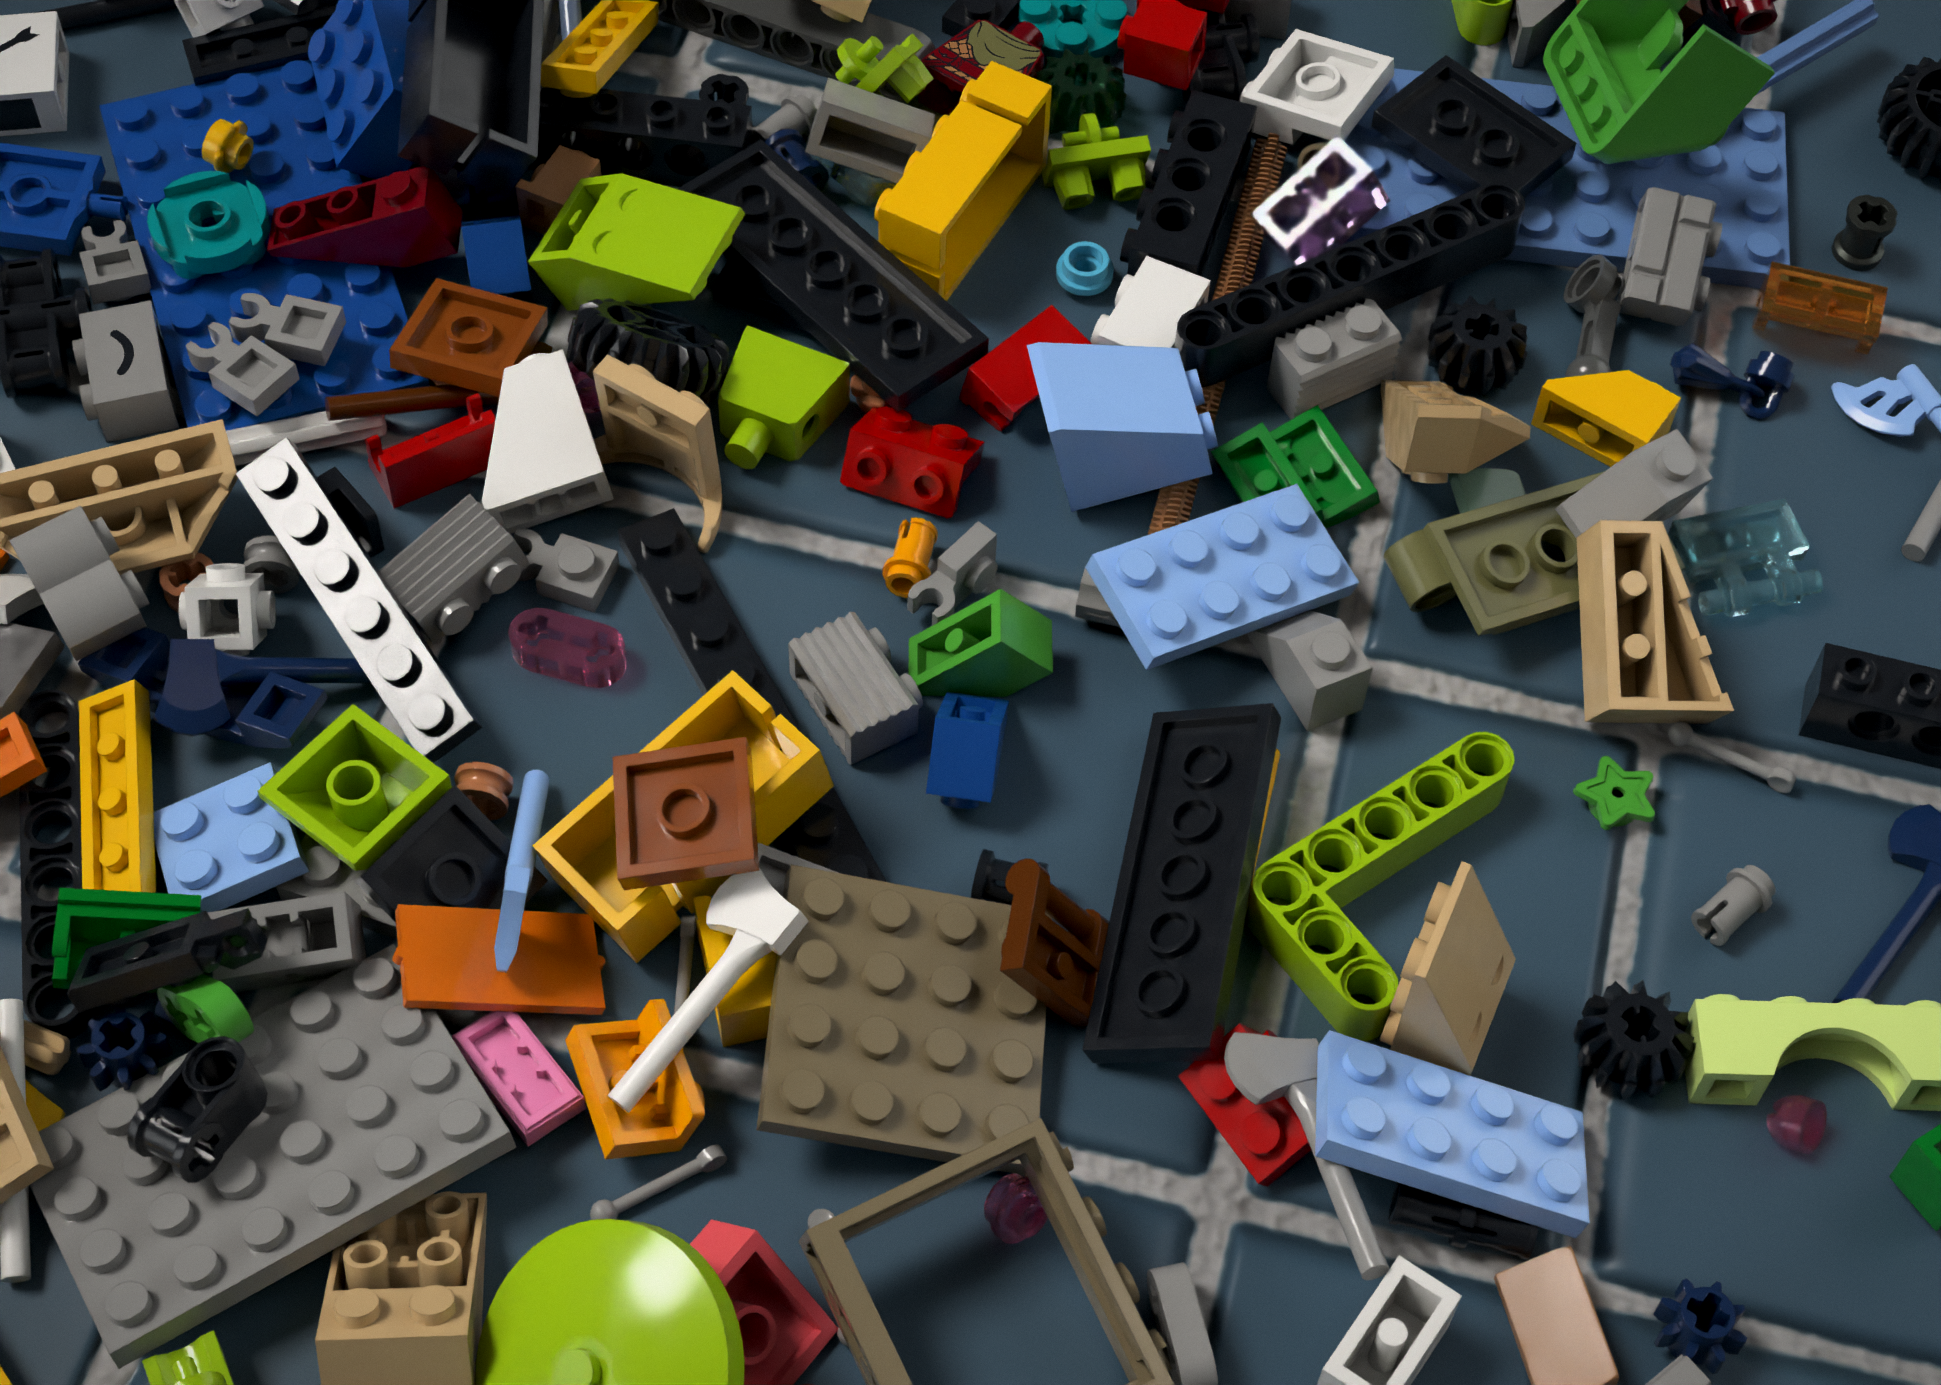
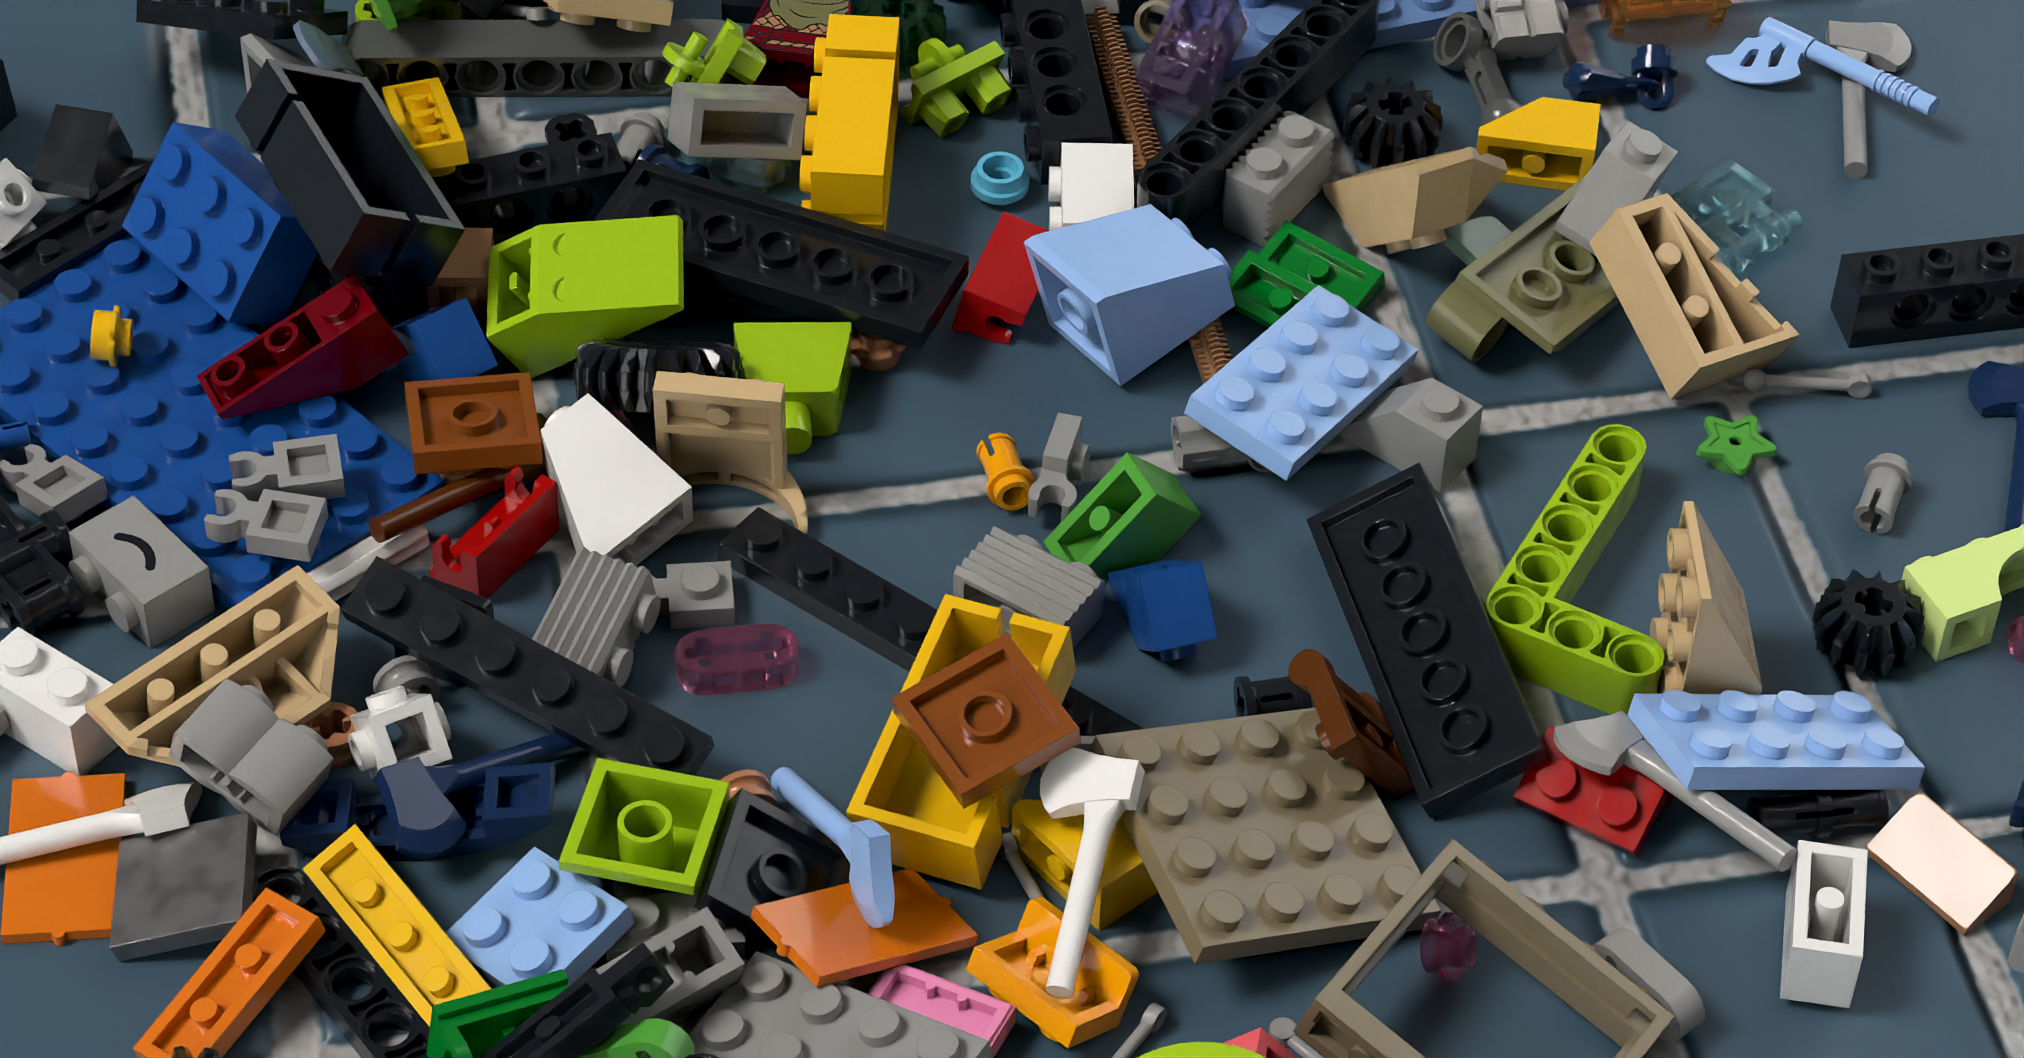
camera: 25 degrees left, 10 degrees down
(214, 249) = (147, 436): teal plate -> none
(909, 460) = (950, 393): red bracket -> none

